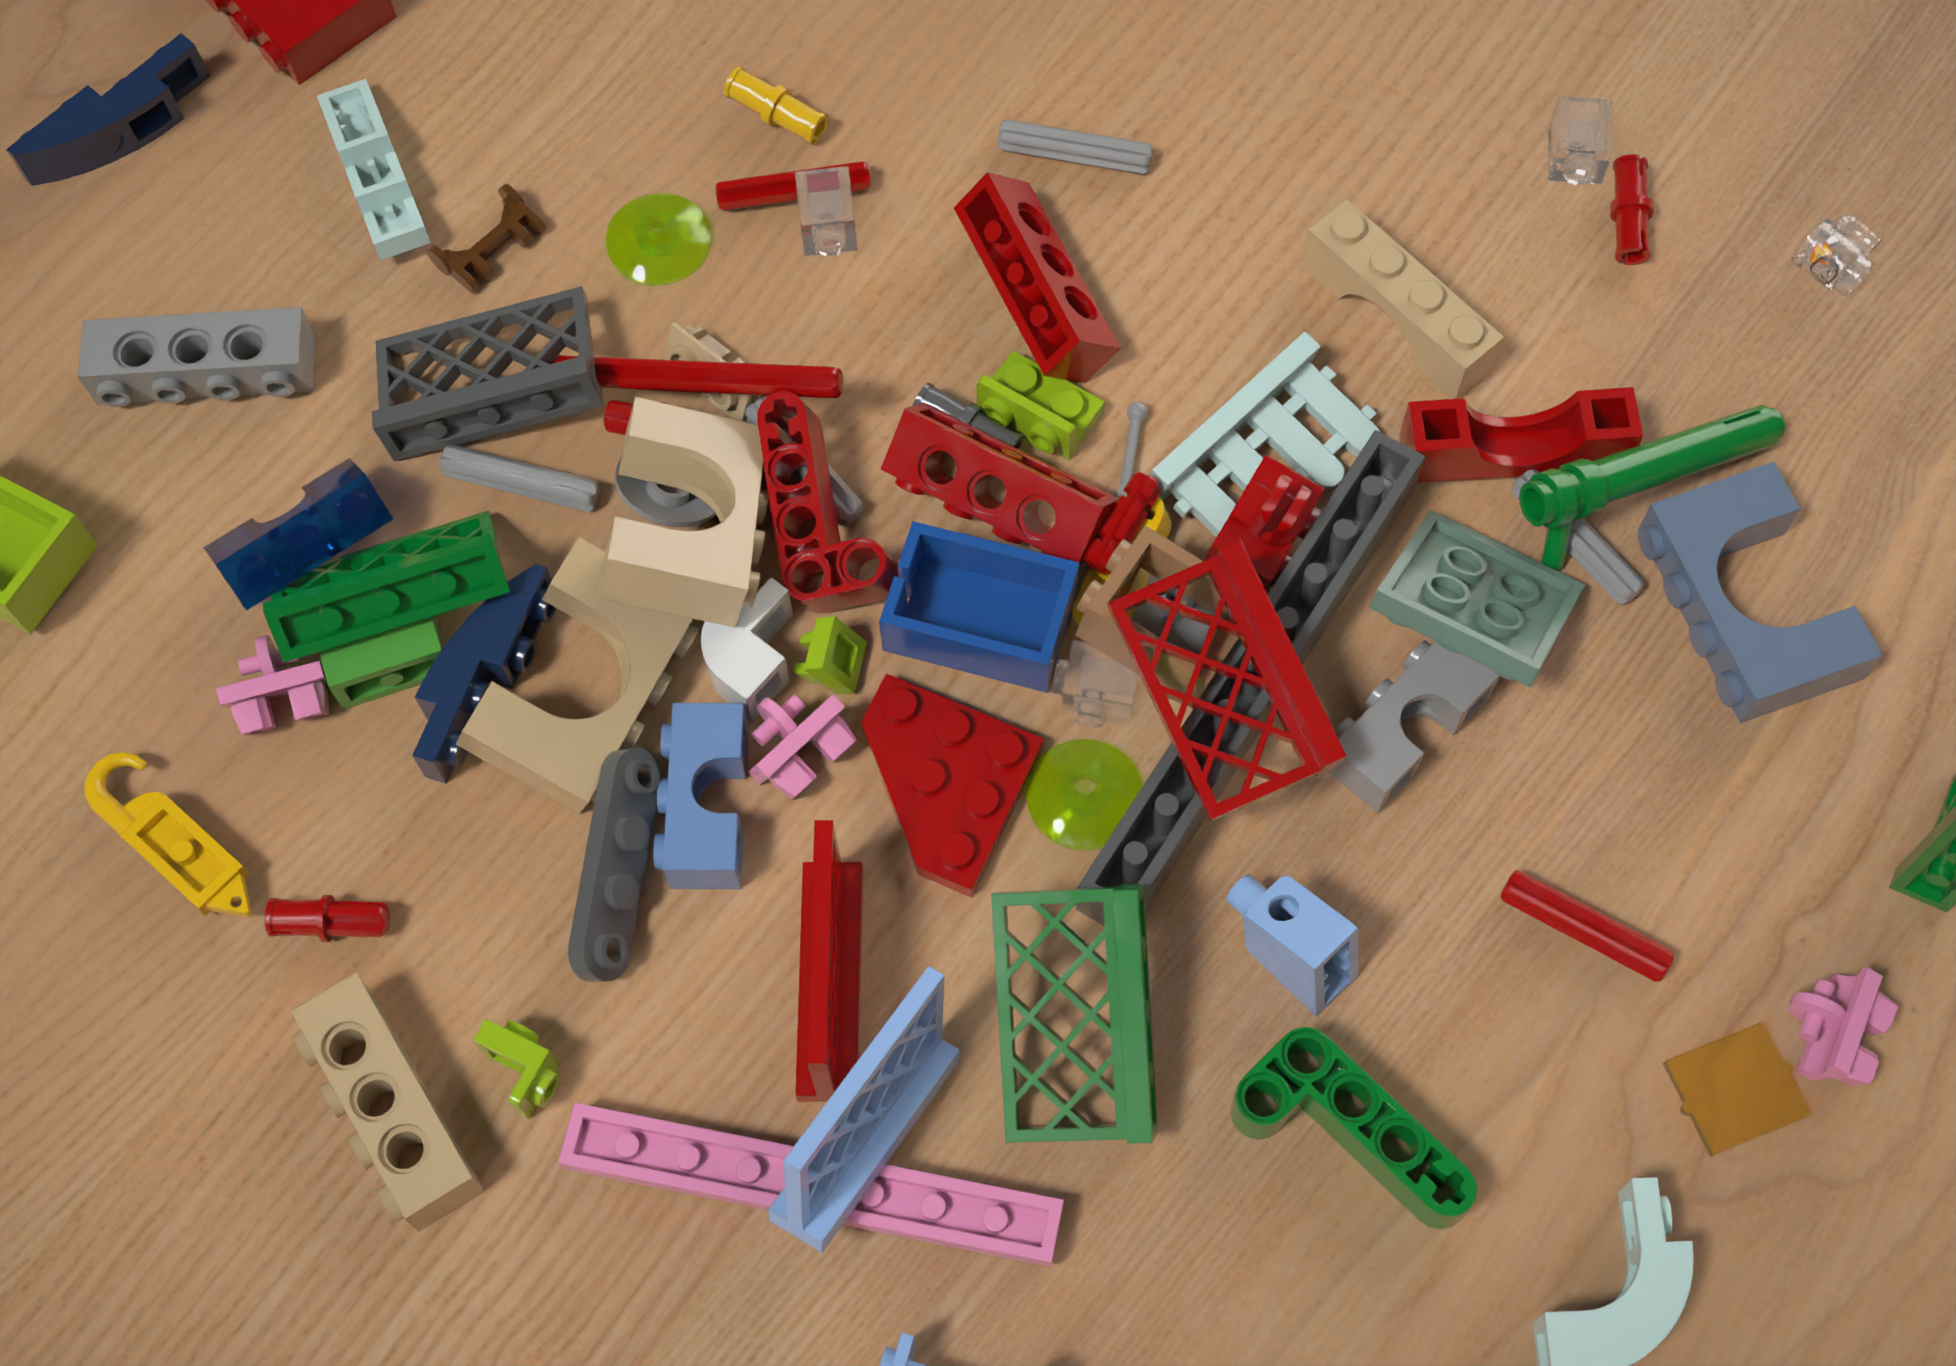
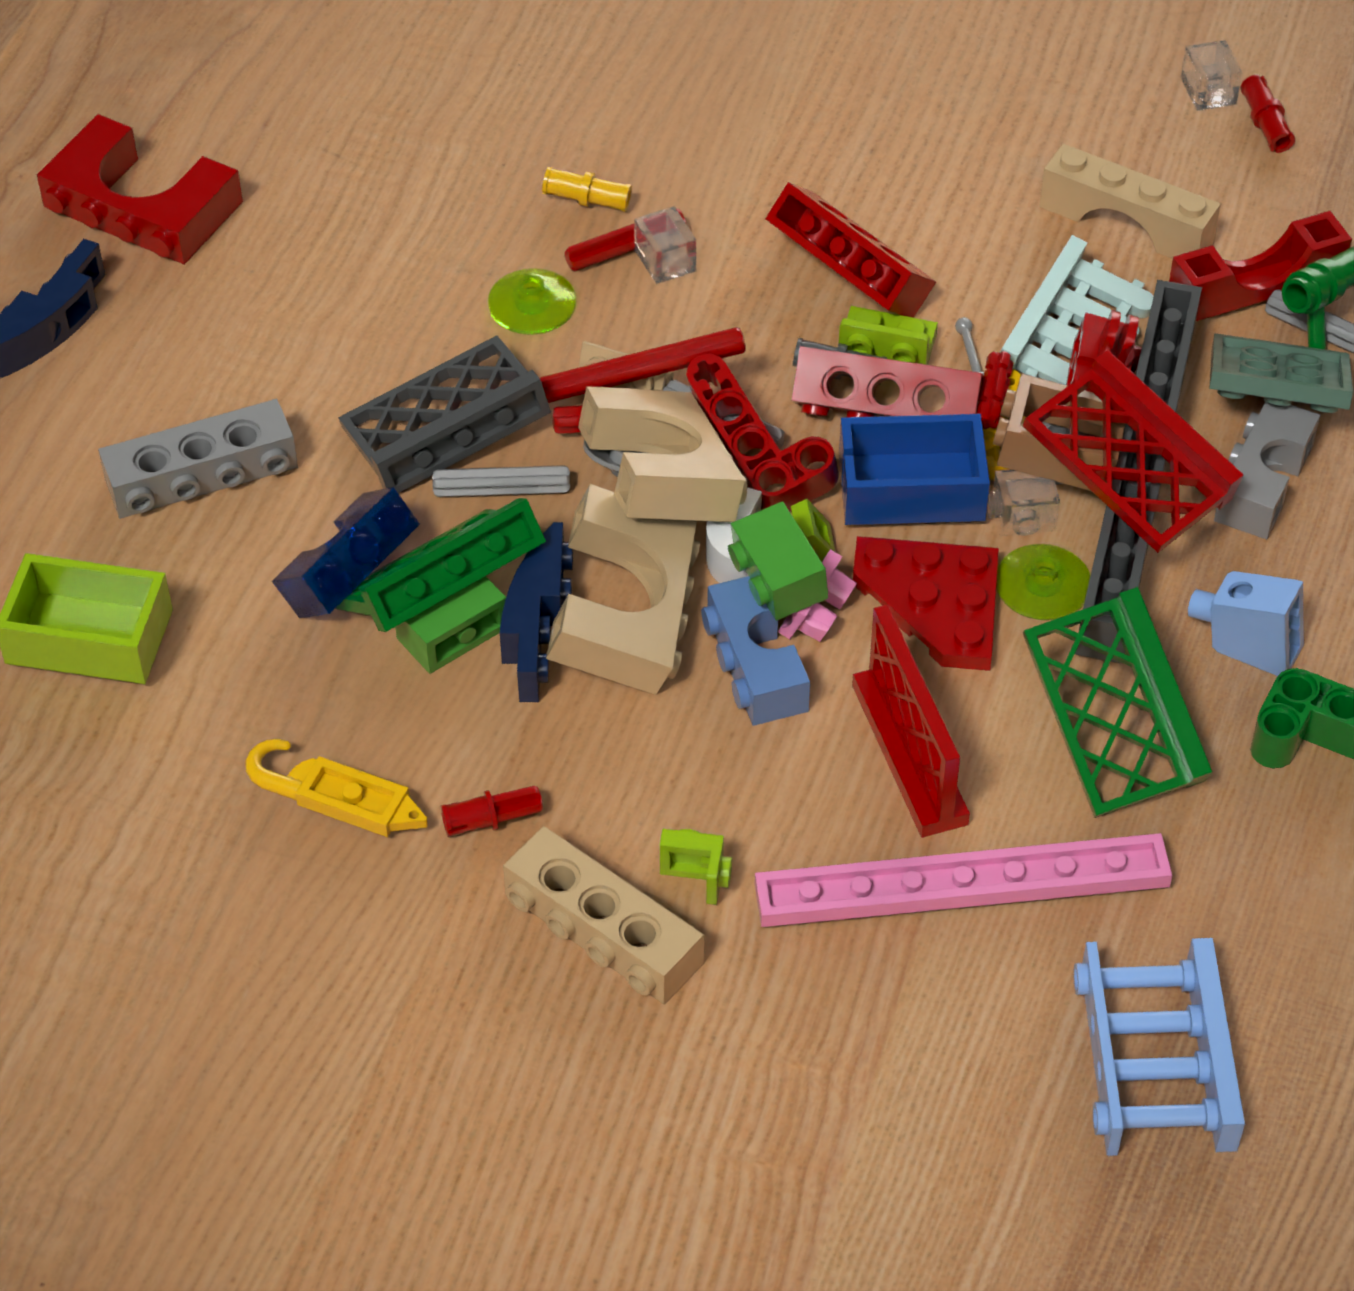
camera: 20 degrees left, 15 degrees down
(251, 697) = (370, 656): bright pink hips -> none
(373, 169) = (278, 303): light aqua slope -> none
(513, 220) = (392, 351): reddish brown piece -> none
(614, 865) = (710, 708): dark grey plate -> none
(752, 703) = (778, 561): none -> bright green brick
(866, 1117) = (995, 810): light blue fence -> none
(1075, 146) = (832, 166): light grey axle -> none

